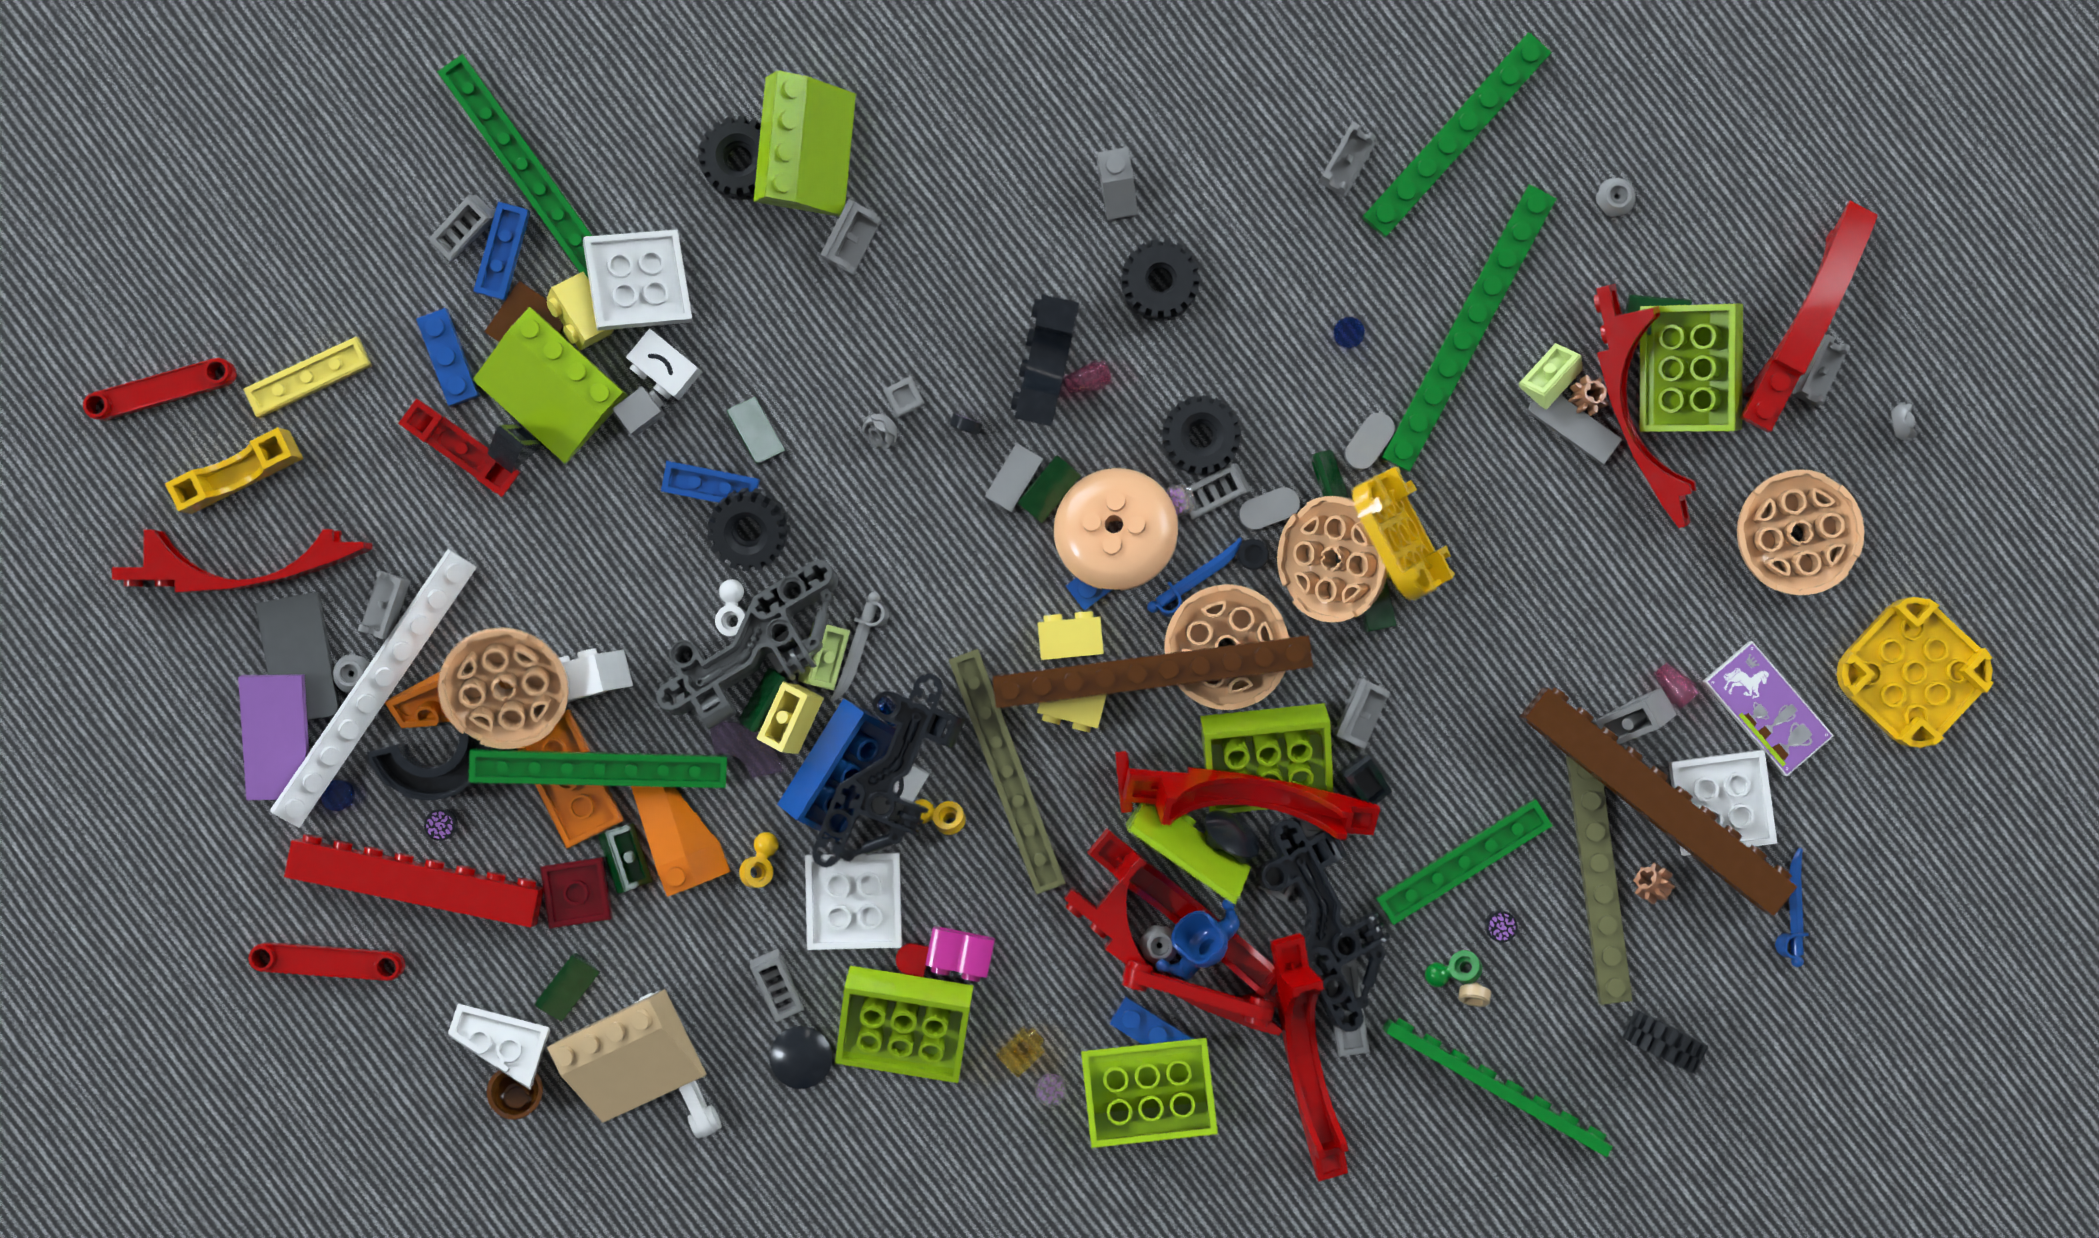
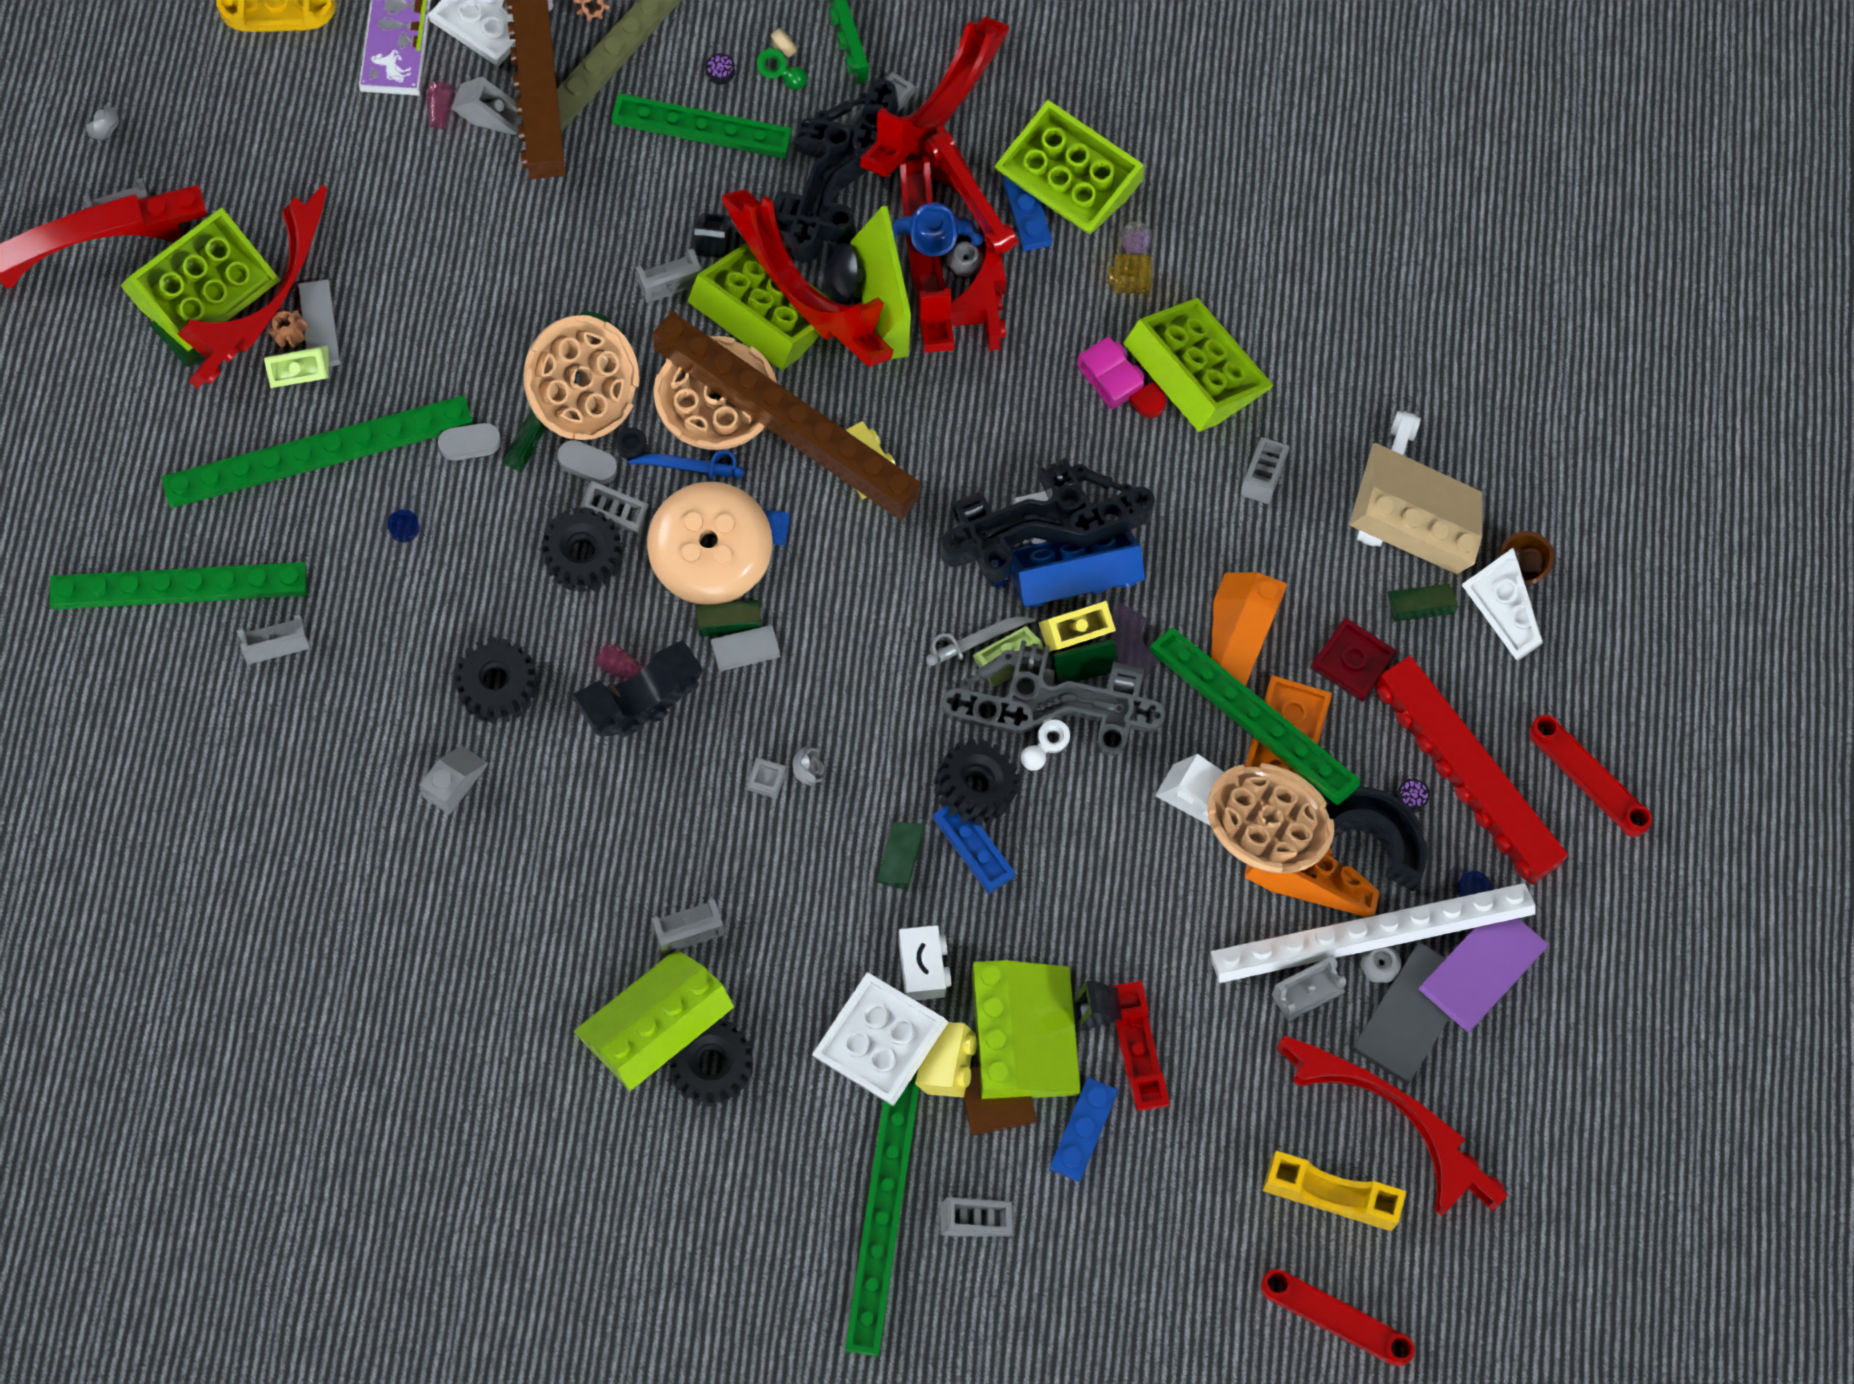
camera: 140 degrees left, 20 degrees down
(307, 377) = (1209, 1219): light yellow tile -> none
(502, 251) = (963, 1167): blue plate -> none
(625, 858) = (1295, 650): dark green slope -> none
(640, 410) = (972, 945): light grey brick -> none
(765, 846) = (1203, 553): yellow plate -> none
(800, 1057) = (1294, 409): black dish -> none
(854, 902) = (1161, 461): white plate -> none
(941, 814) = (1028, 474): yellow plate -> none
(965, 424) = (741, 713): black tile -> none
(1007, 772) = (955, 459): olive plate -> none
(1070, 637) = (818, 502): light yellow brick -> none
(1122, 766) = (880, 377): red tile -> none
(1182, 499) = (640, 521): clear tile -> none
(1400, 535) = (524, 331): yellow tile -> none
(1612, 206) = (121, 449): light grey plate -> none
(1829, 525) = (245, 93): light nougat brick -> none

